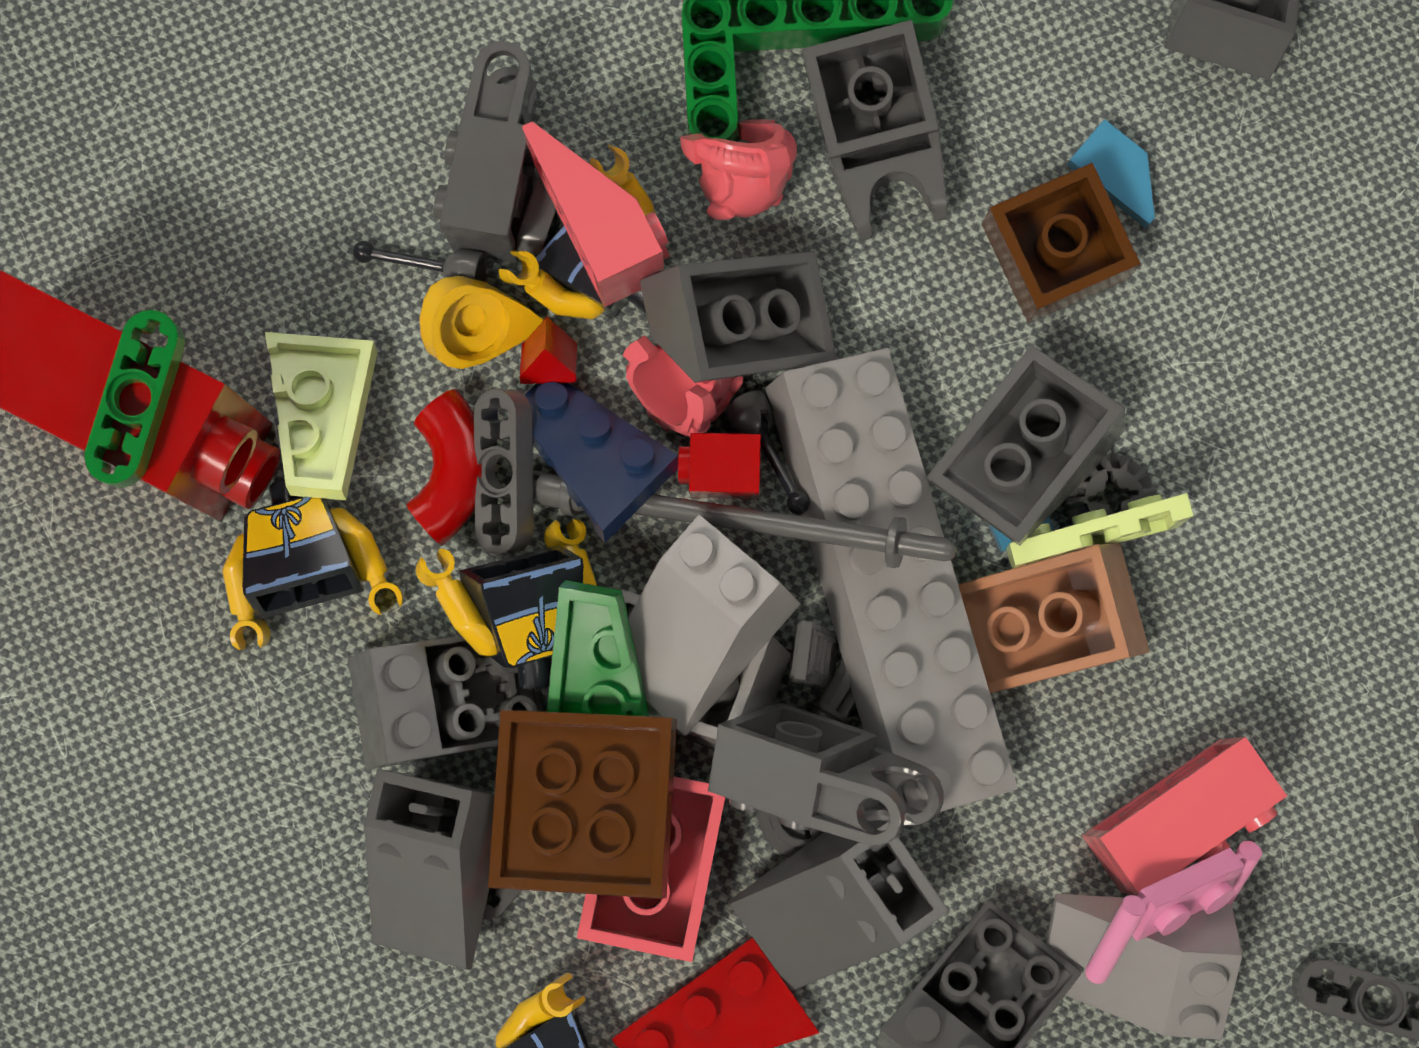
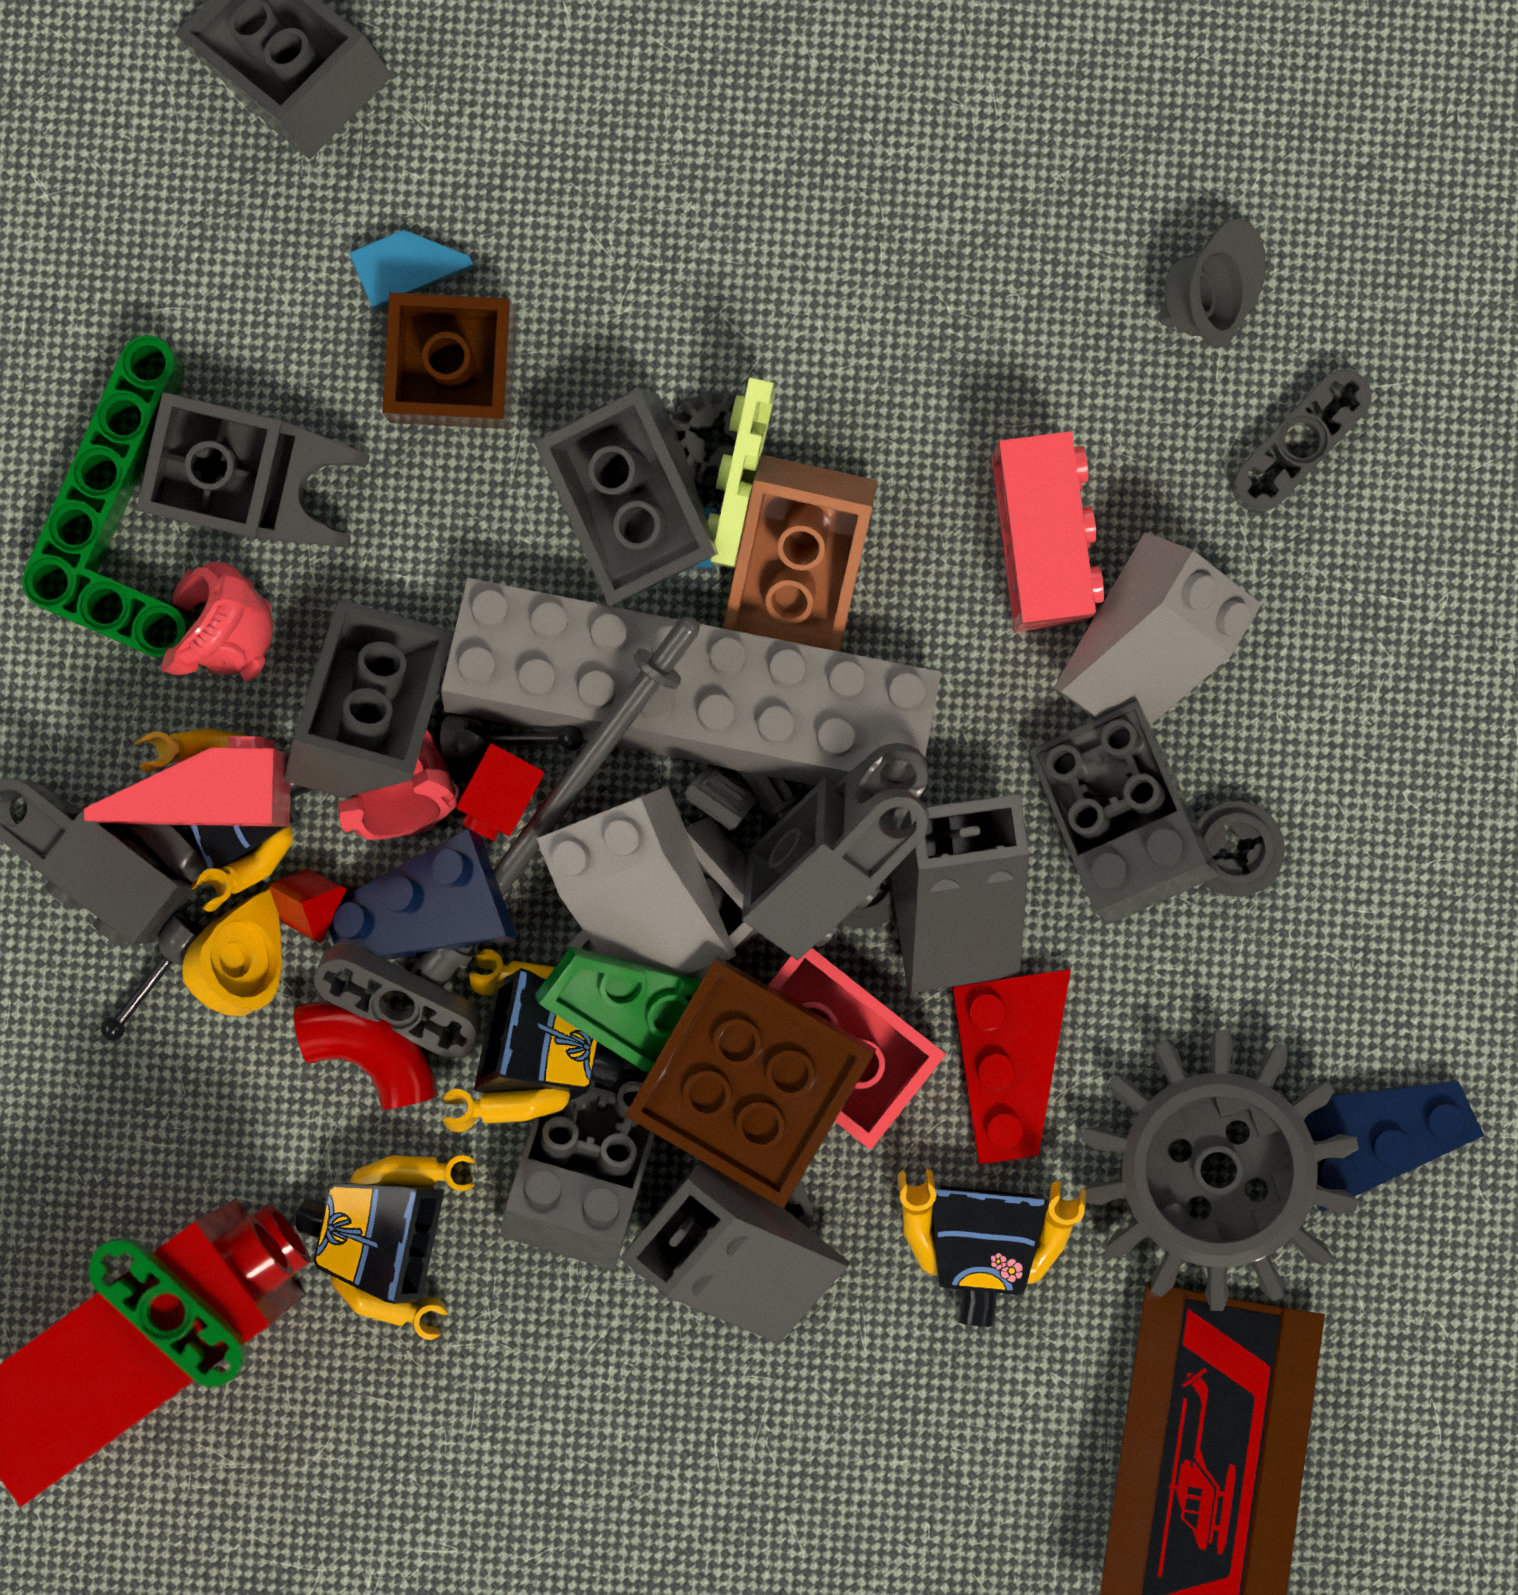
camera: 60 degrees left, 5 degrees up
(320, 408) = (247, 1144): yellowish green wing -> none
(1172, 901) = (1112, 584): bright pink plate -> none

